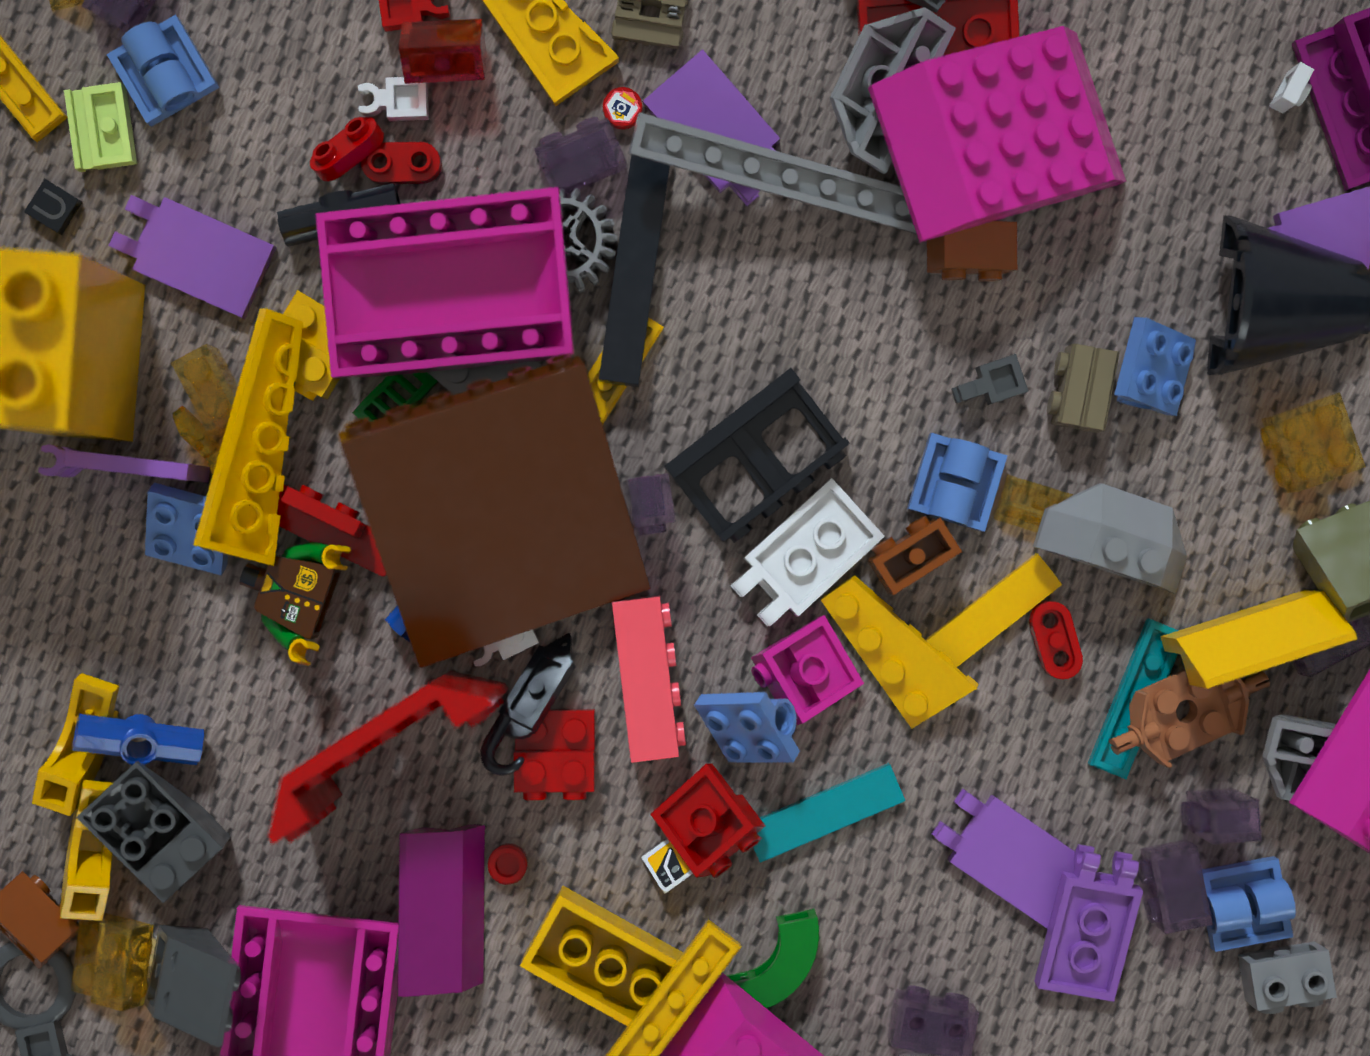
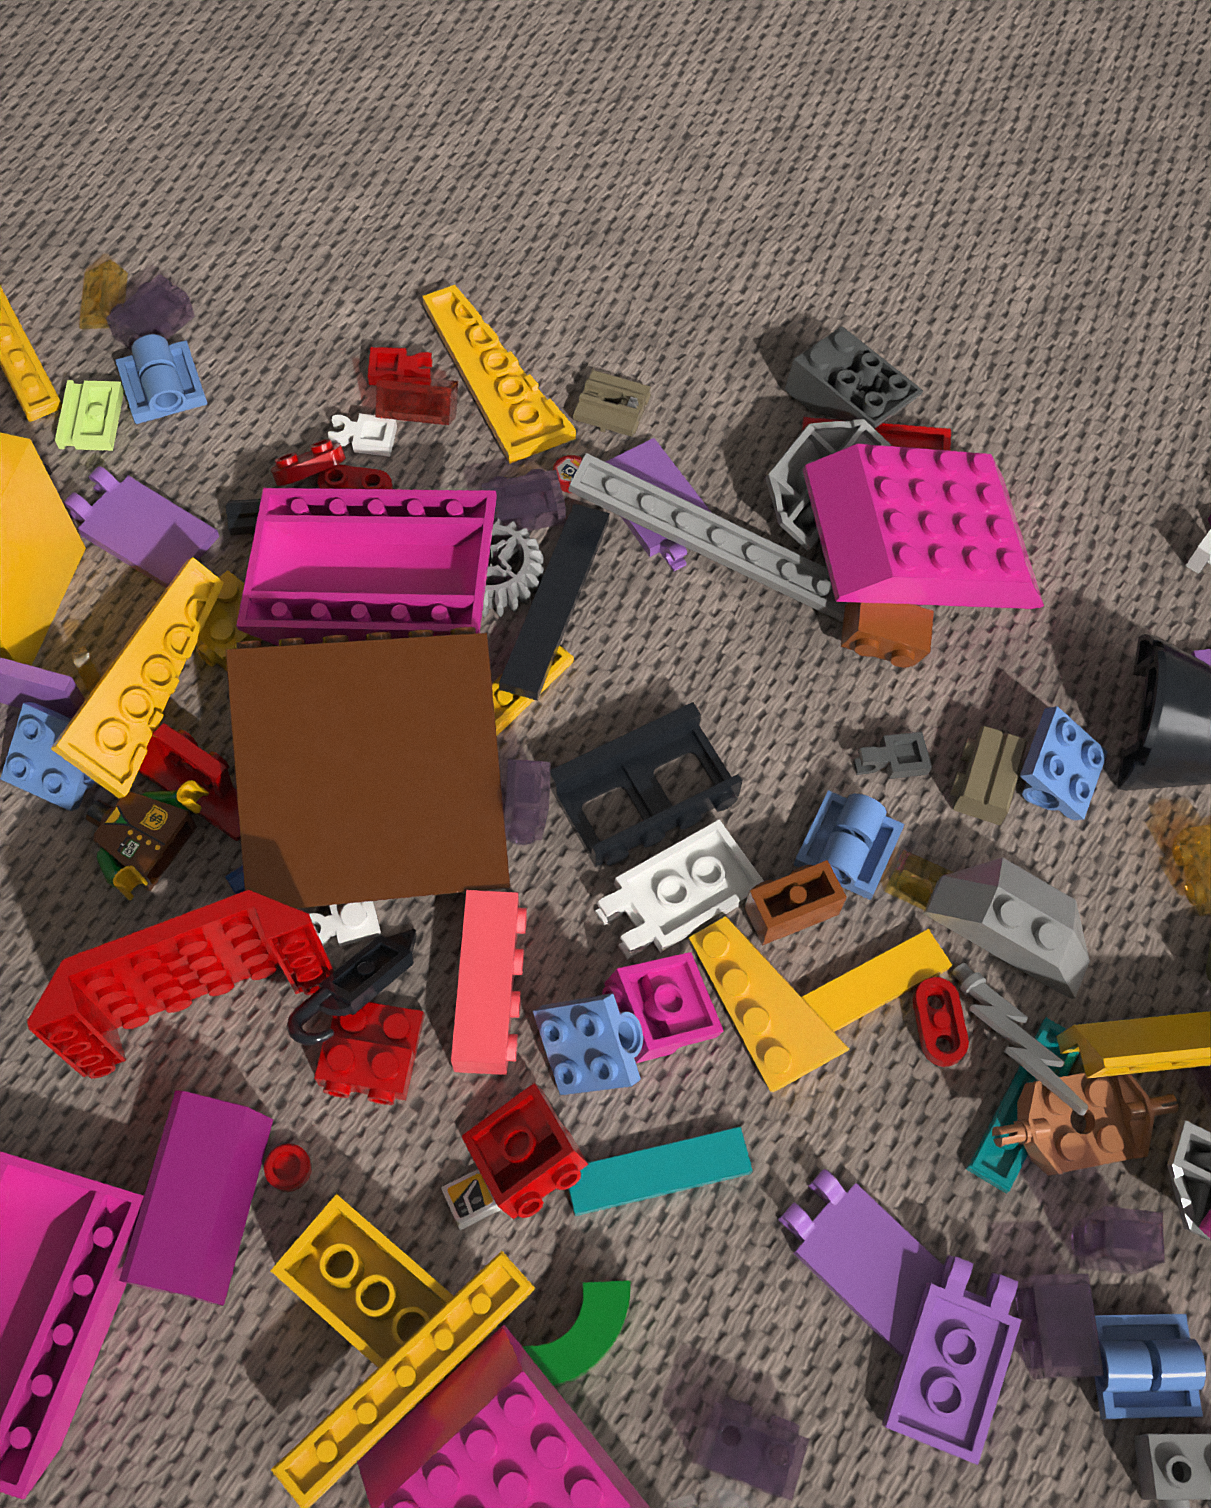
camera: 10 degrees right, 25 degrees down
(208, 386) = (113, 624): clear yellow brick -> none
(1106, 630) = (1027, 1051): none -> light grey piece

